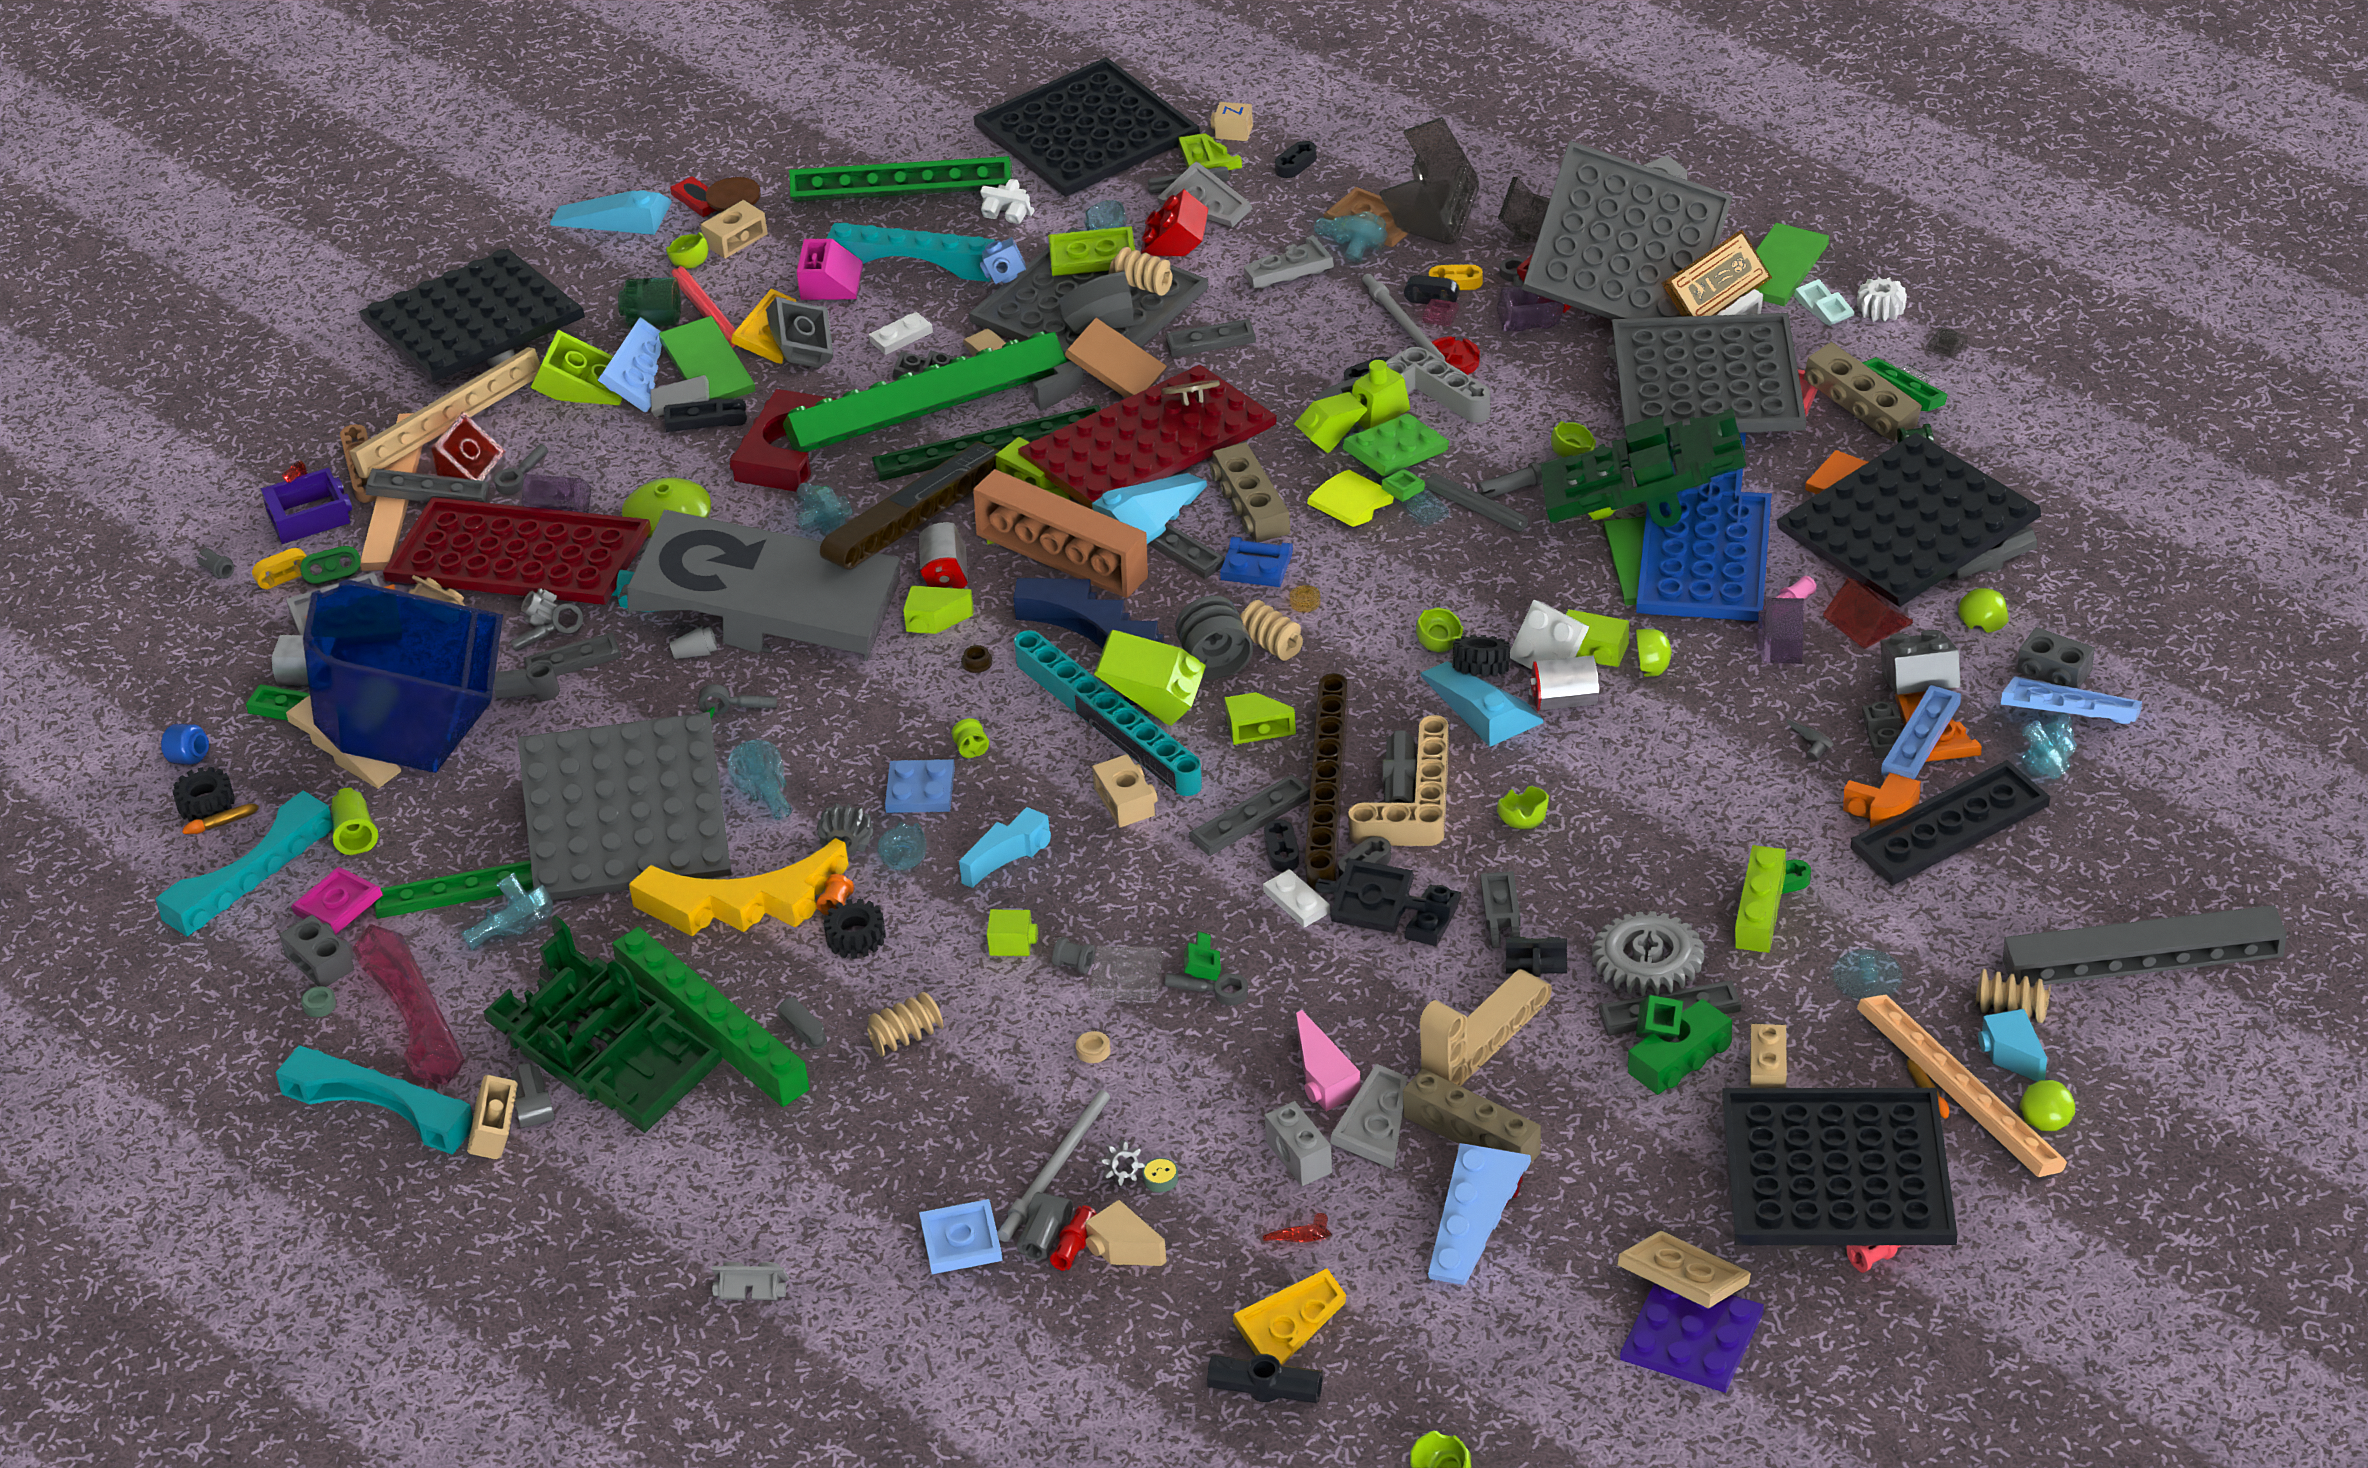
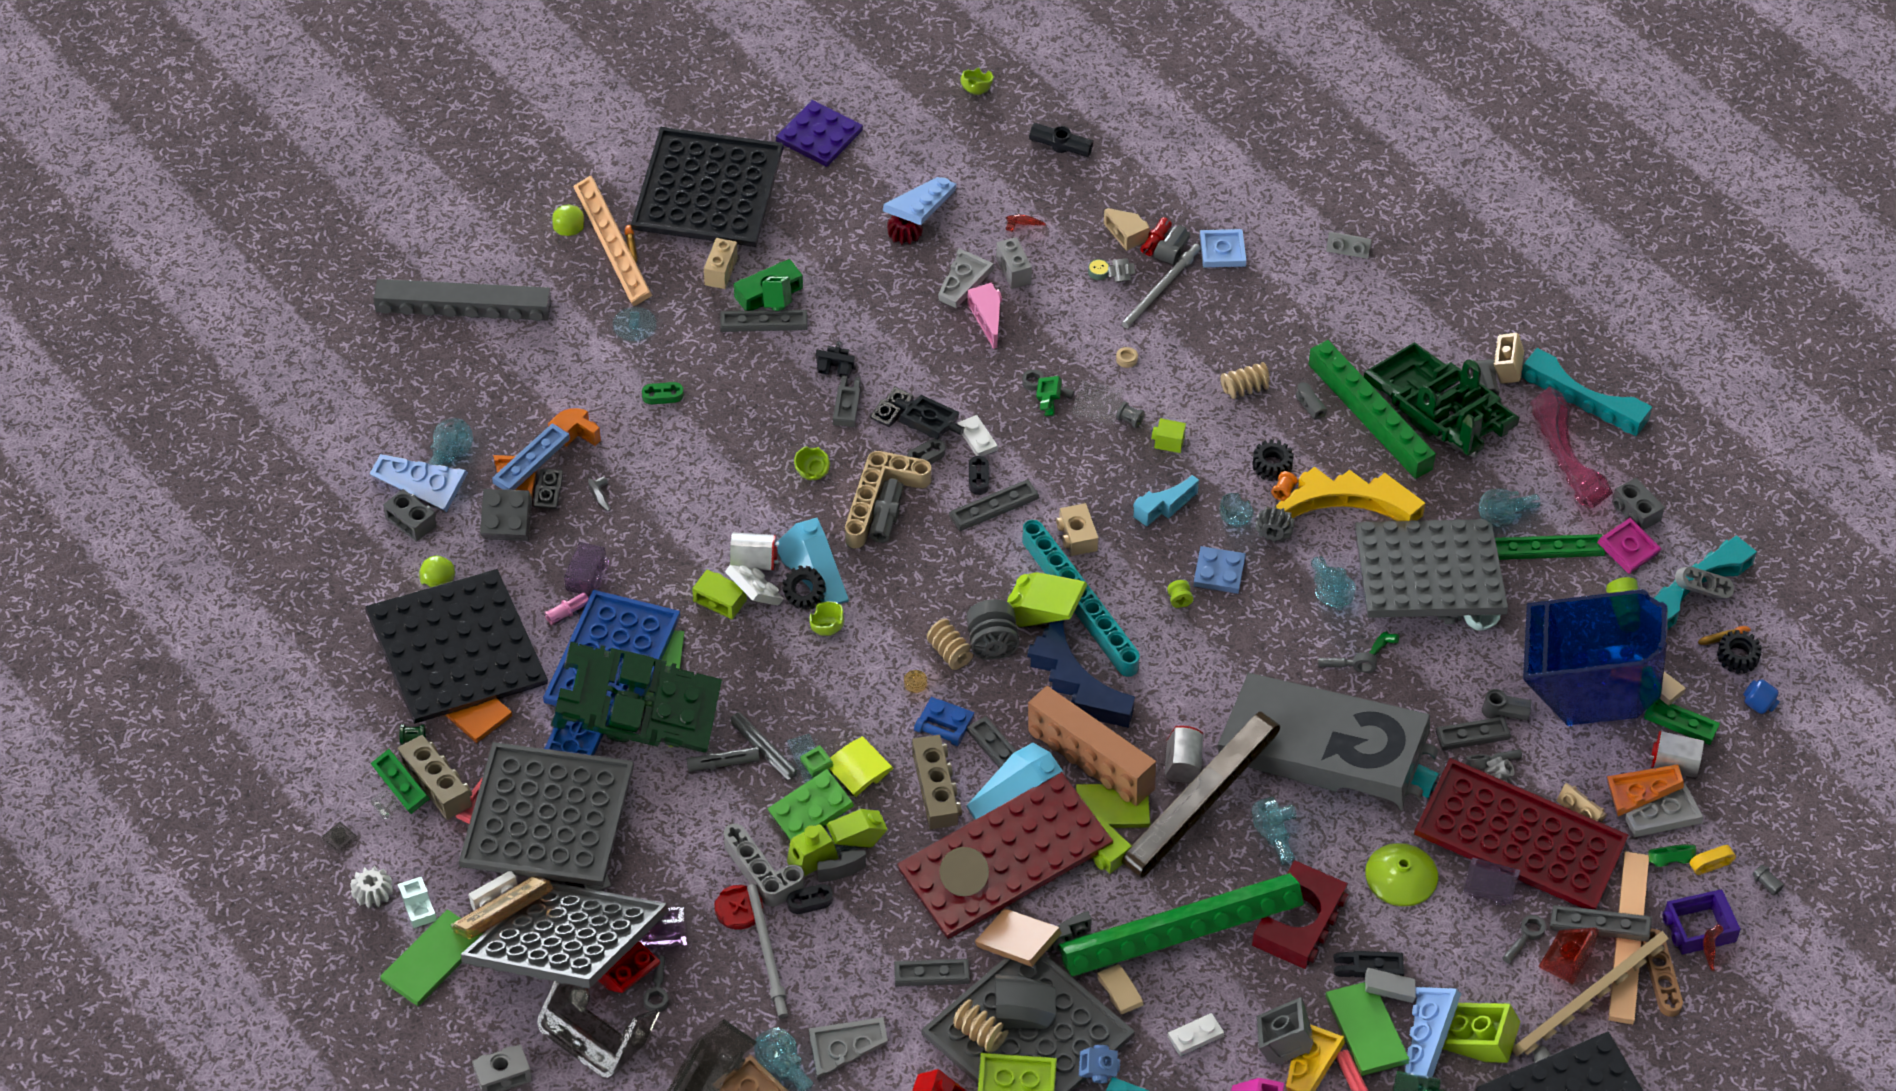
camera: 175 degrees left, 10 degrees up
(239, 846) = (1696, 584): none -> light grey beam
(318, 1001) = (1632, 472): sand green tile -> none
(912, 363) = (1173, 985): dark grey slope -> none
(933, 454) = (1133, 889): dark green tile -> none
(936, 608) = (1194, 712): lime slope -> none
(976, 659) = (1167, 662): dark brown plate -> none
(1258, 718) = (974, 571): lime slope -> none
(1290, 1316) = (1042, 172): yellow wing -> none
(1326, 779) = (937, 513): dark brown beam -> none
(1430, 289) = (734, 978): black beam -> none
(1440, 312) = (732, 961): clear pink tile -> none
(1457, 1044) = (891, 311): tan beam -> none
(1466, 276) = (708, 998): yellow beam -> none
(1467, 1116) = (907, 258): dark tan brick -> none
(1571, 439) = (673, 779): lime hair -> none
(1653, 651) = (682, 564): lime hair -> none
(1683, 961) = (767, 355): light grey gear -> none
(1684, 1269) = (814, 155): tan tile -> none
(1760, 898) = (683, 363): lime brick -> none
(1864, 614) = (521, 582): clear red slope -> none
(1949, 822) = (535, 408): black plate -> none
(2012, 996) = (558, 280): tan piece -> none
(2013, 1044) = (571, 254): medium azure slope -> none

